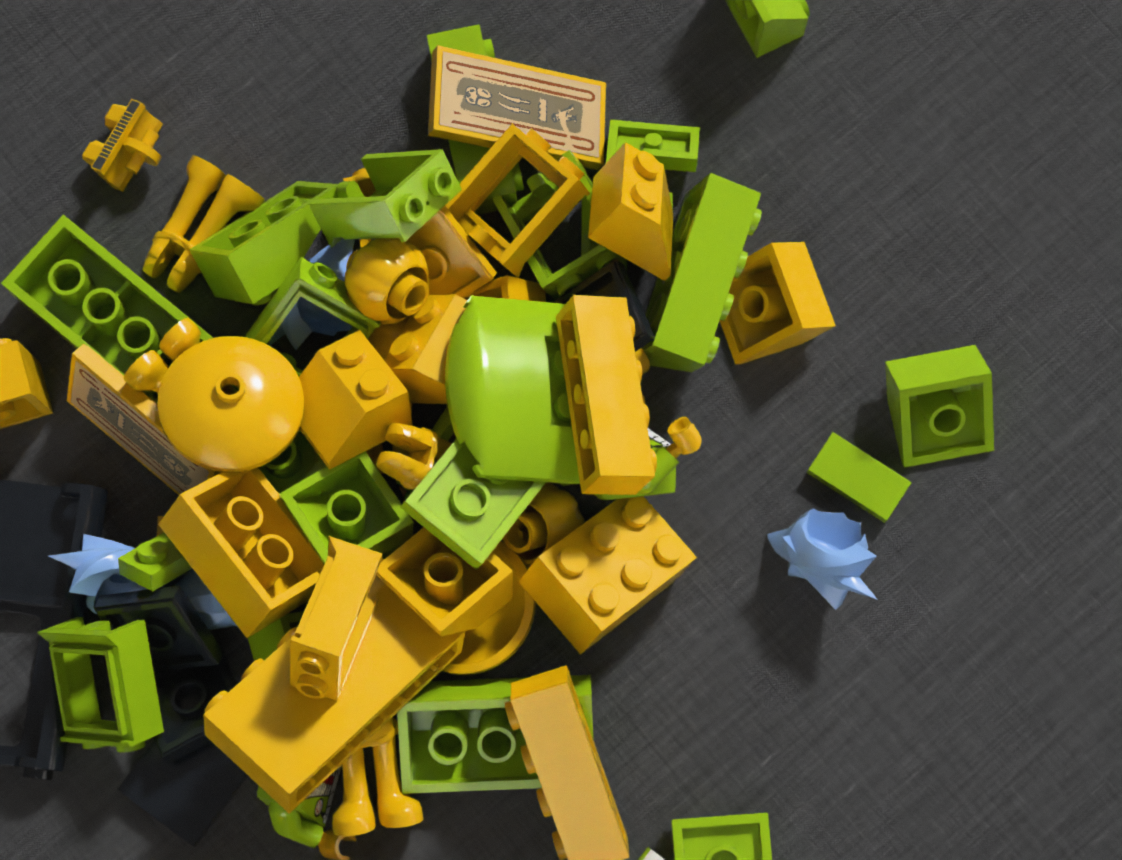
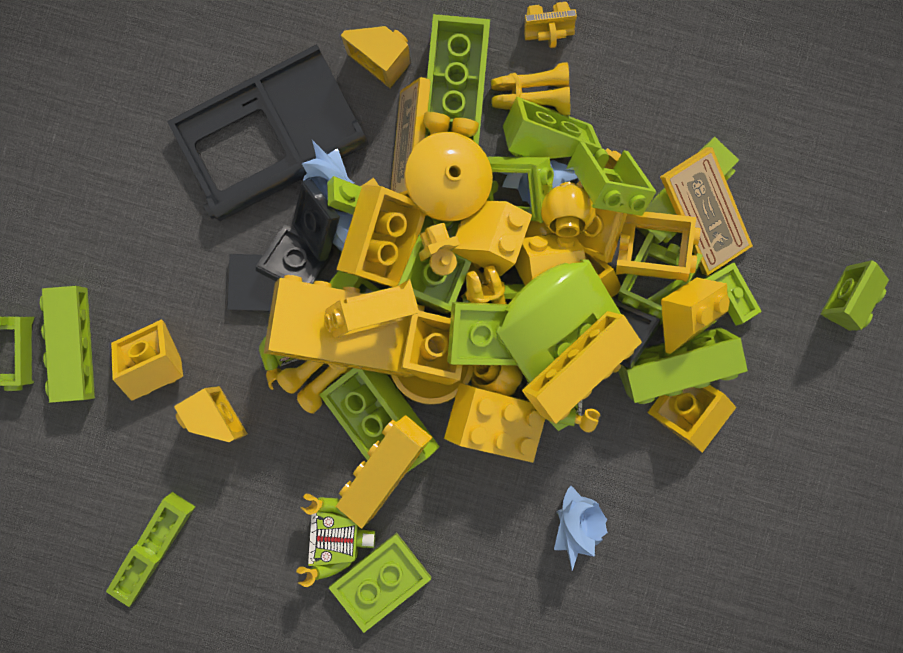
camera: 60 degrees right, 10 degrees up
(129, 678) = (282, 222): lime window -> none
(311, 473) = (438, 248): none -> yellow hips
(859, 477) = (631, 514): lime tile -> none
(941, 405) = (697, 532): lime slope -> none

